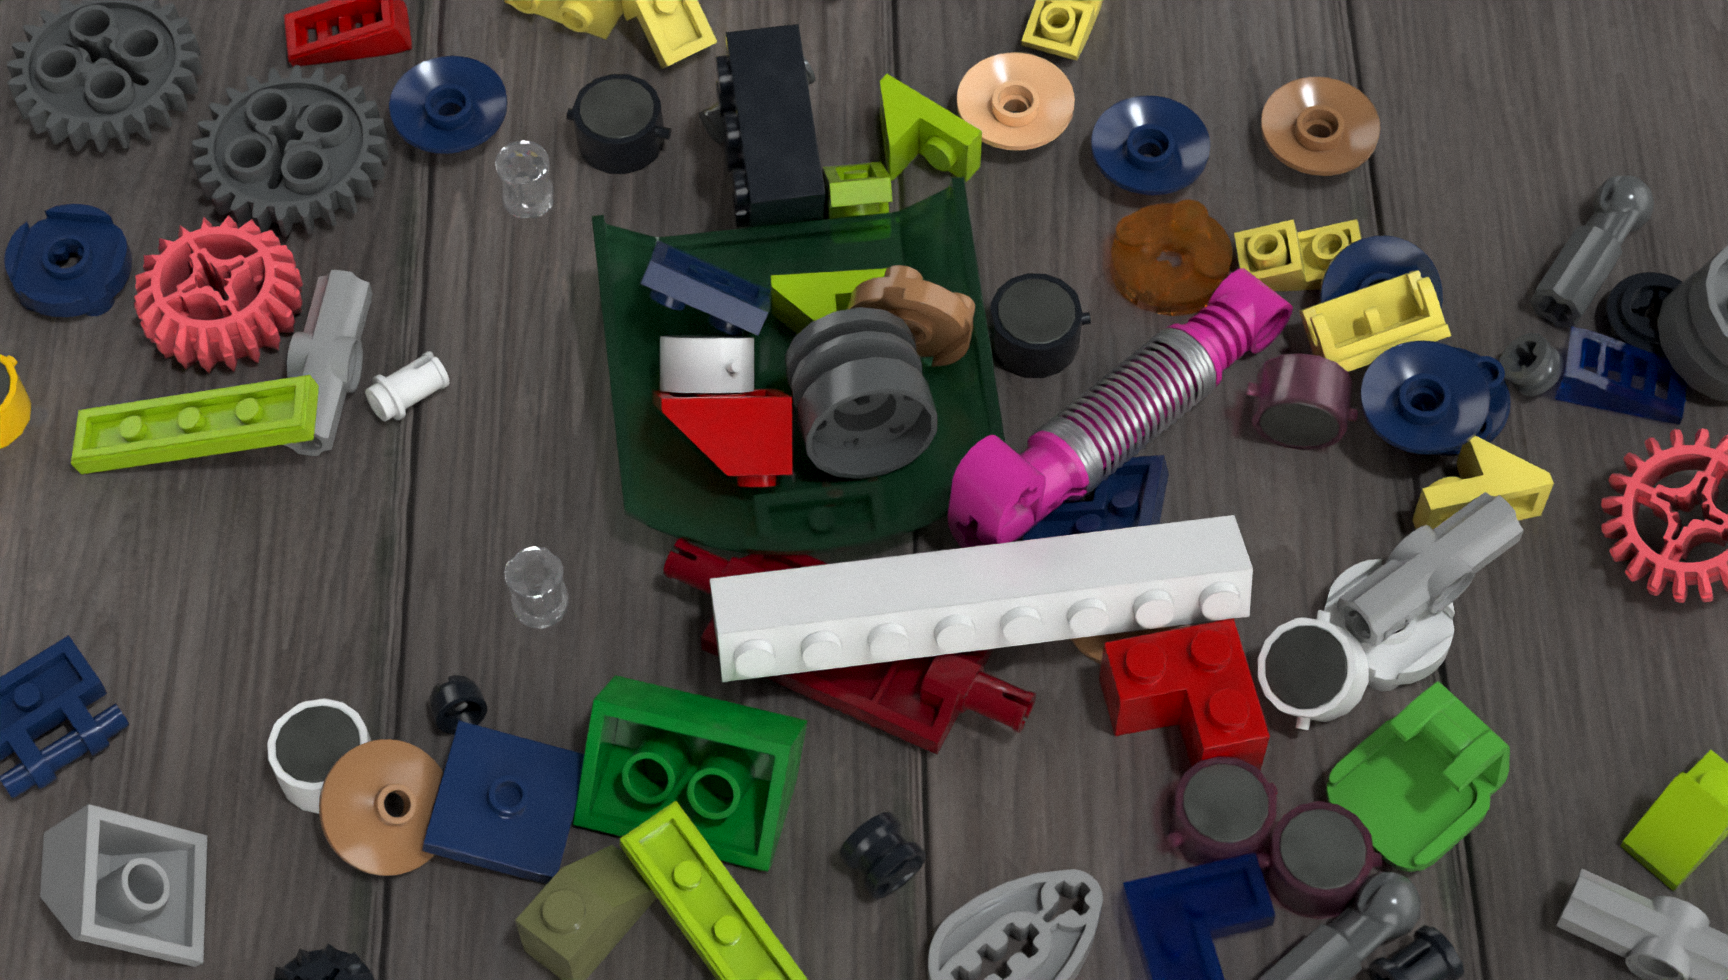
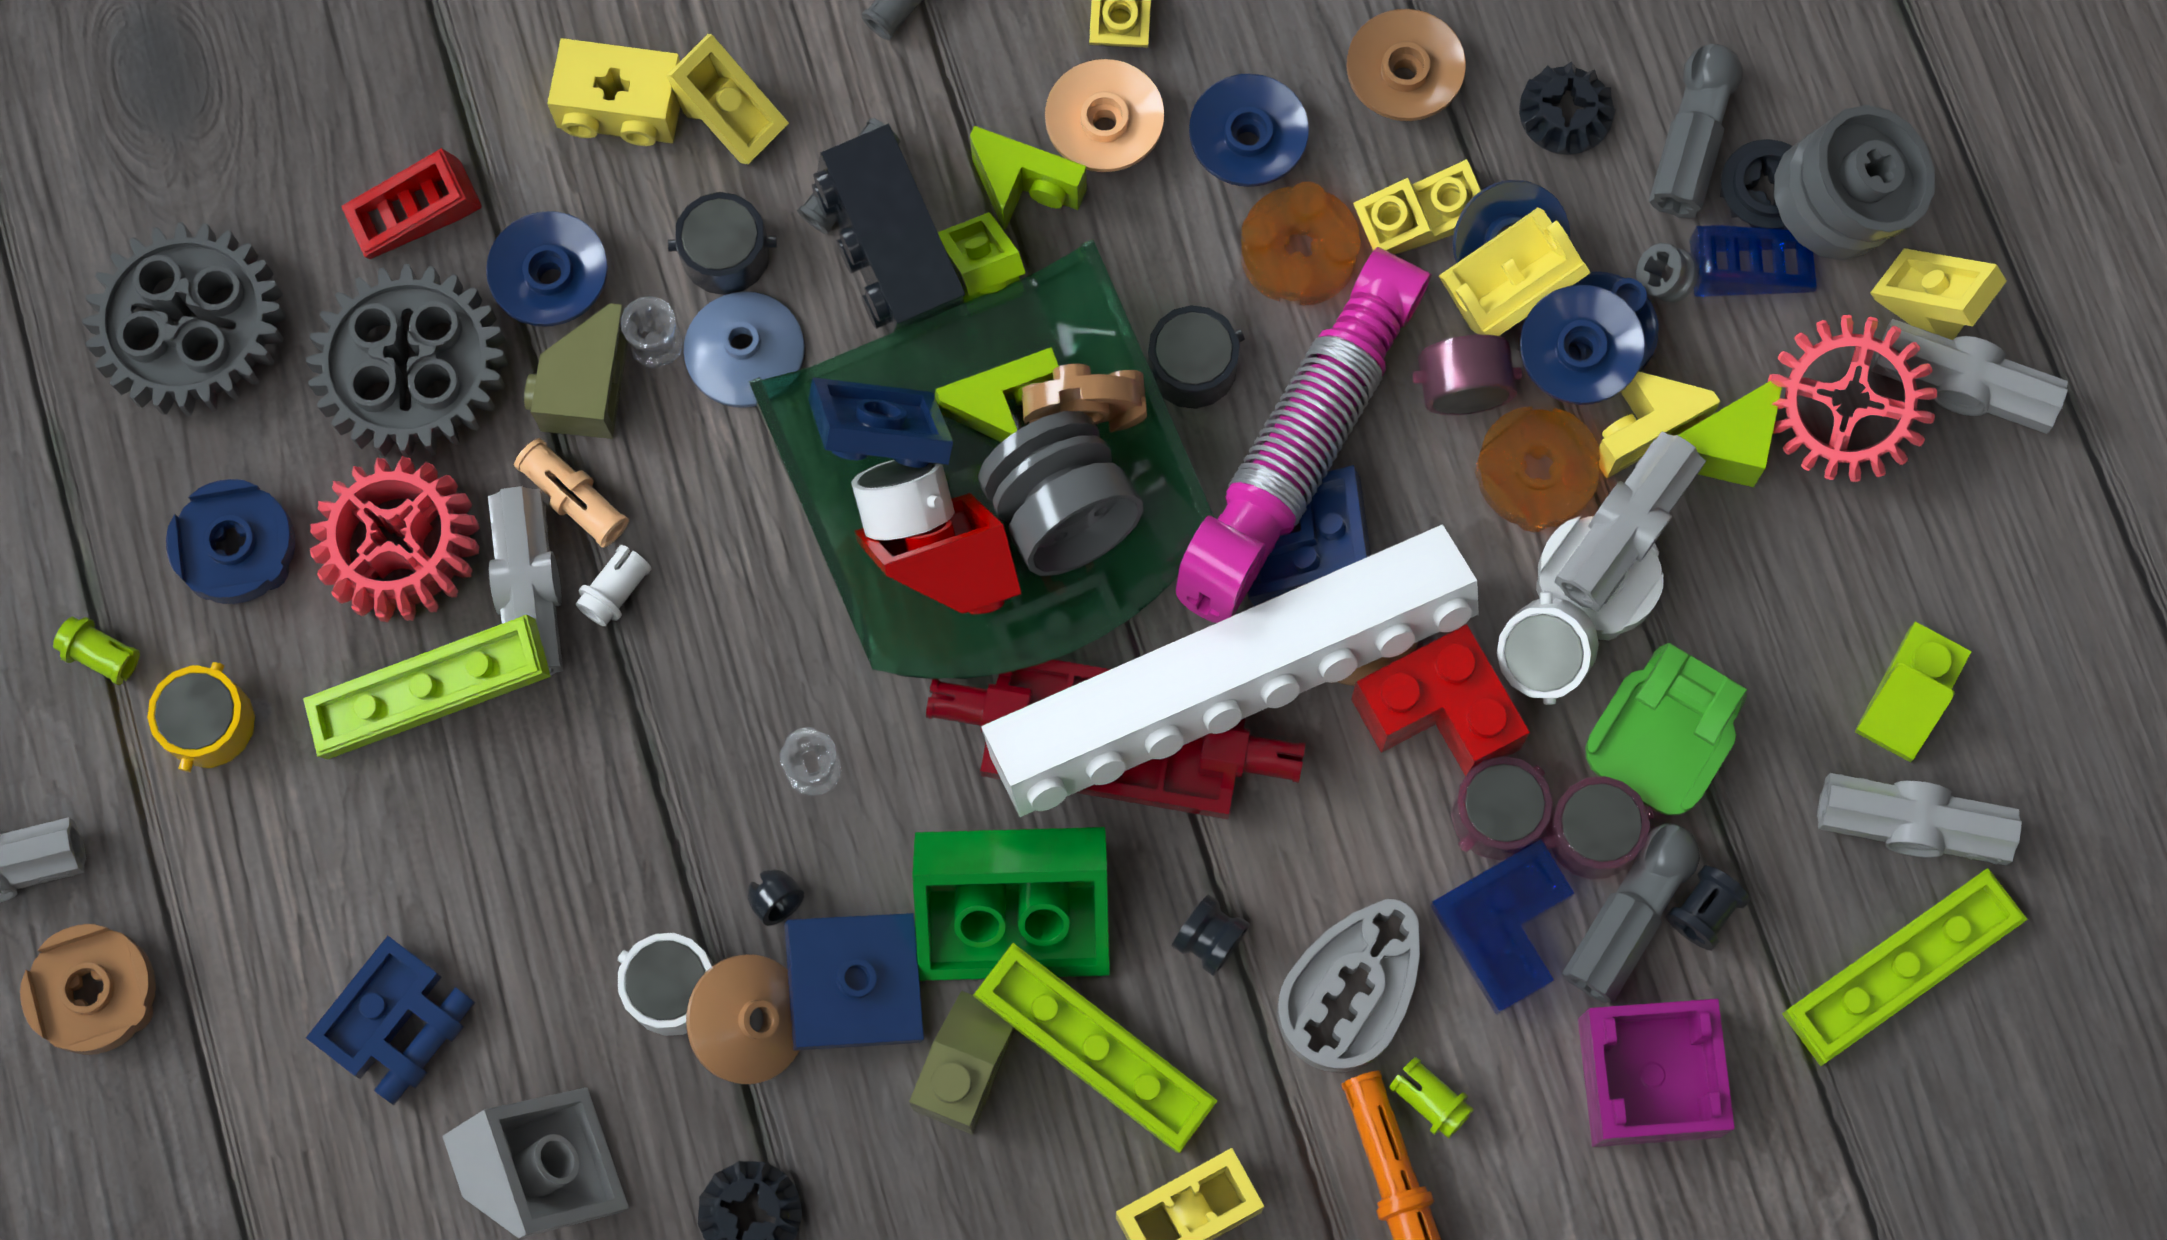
camera: 15 degrees left, 15 degrees up
(414, 323) = (543, 467): none -> light nougat pin
(444, 202) = (581, 378): none -> olive slope
(634, 206) = (725, 371): none -> sand blue dish
(1342, 539) = (1538, 433): none -> clear orange plate
(1485, 223) = (1545, 122): none -> black gear
(1561, 527) = (1737, 437): none -> lime slope

